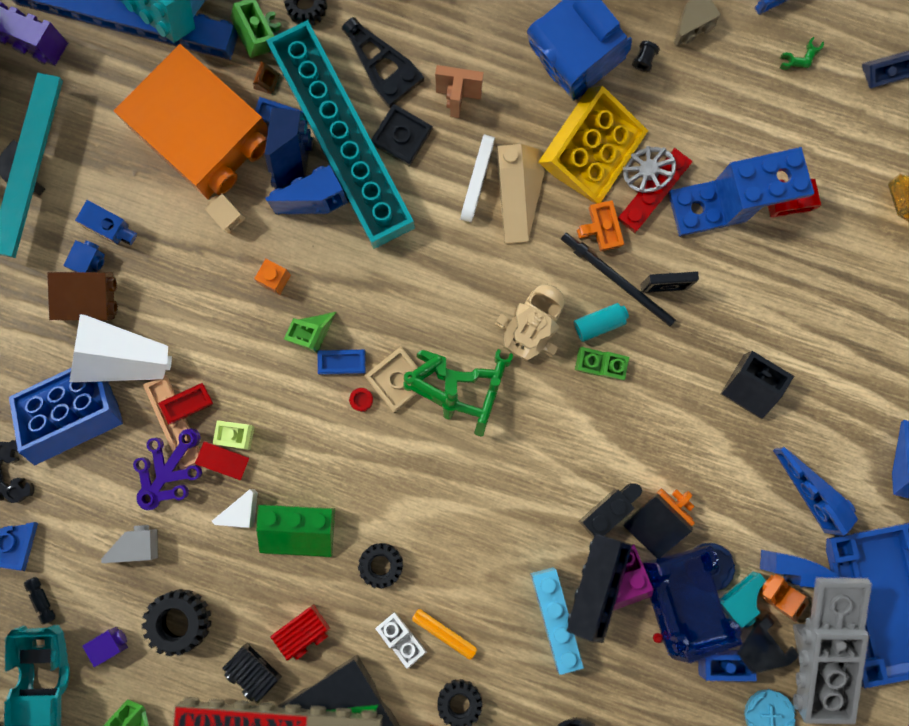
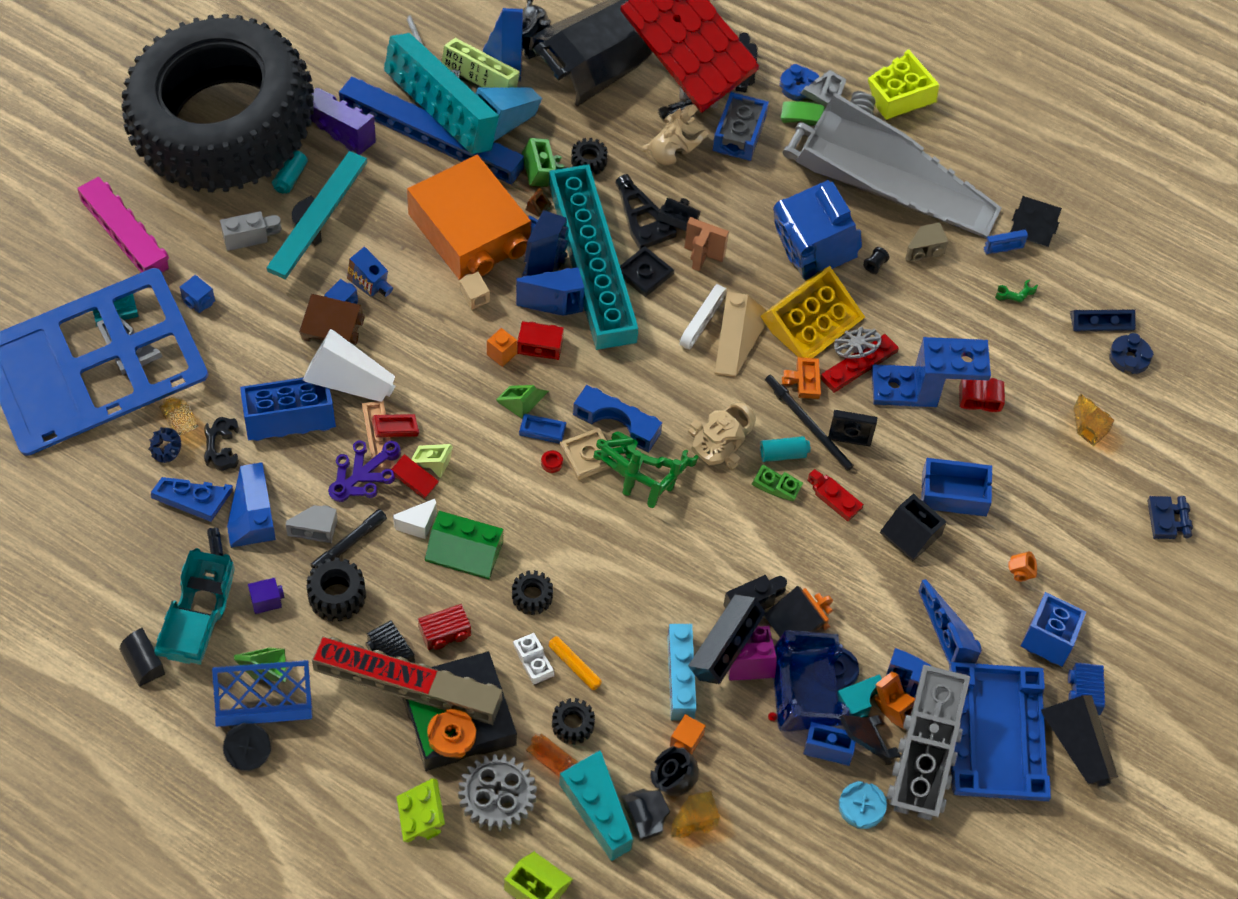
camera: 10 degrees right, 25 degrees down
(62, 541) = (250, 511): none -> blue wedge
(160, 578) = (367, 526): none -> black piece
(311, 255) = (540, 340): none -> red brick
(388, 322) = (594, 406): none -> blue arch
(421, 53) = (677, 213): none -> black slope
(579, 692) = (687, 734): none -> orange brick
(665, 362) = (834, 495): none -> red hinge
(792, 323) = (957, 486): none -> blue piece
(877, 398) = (1023, 566): none -> orange plate

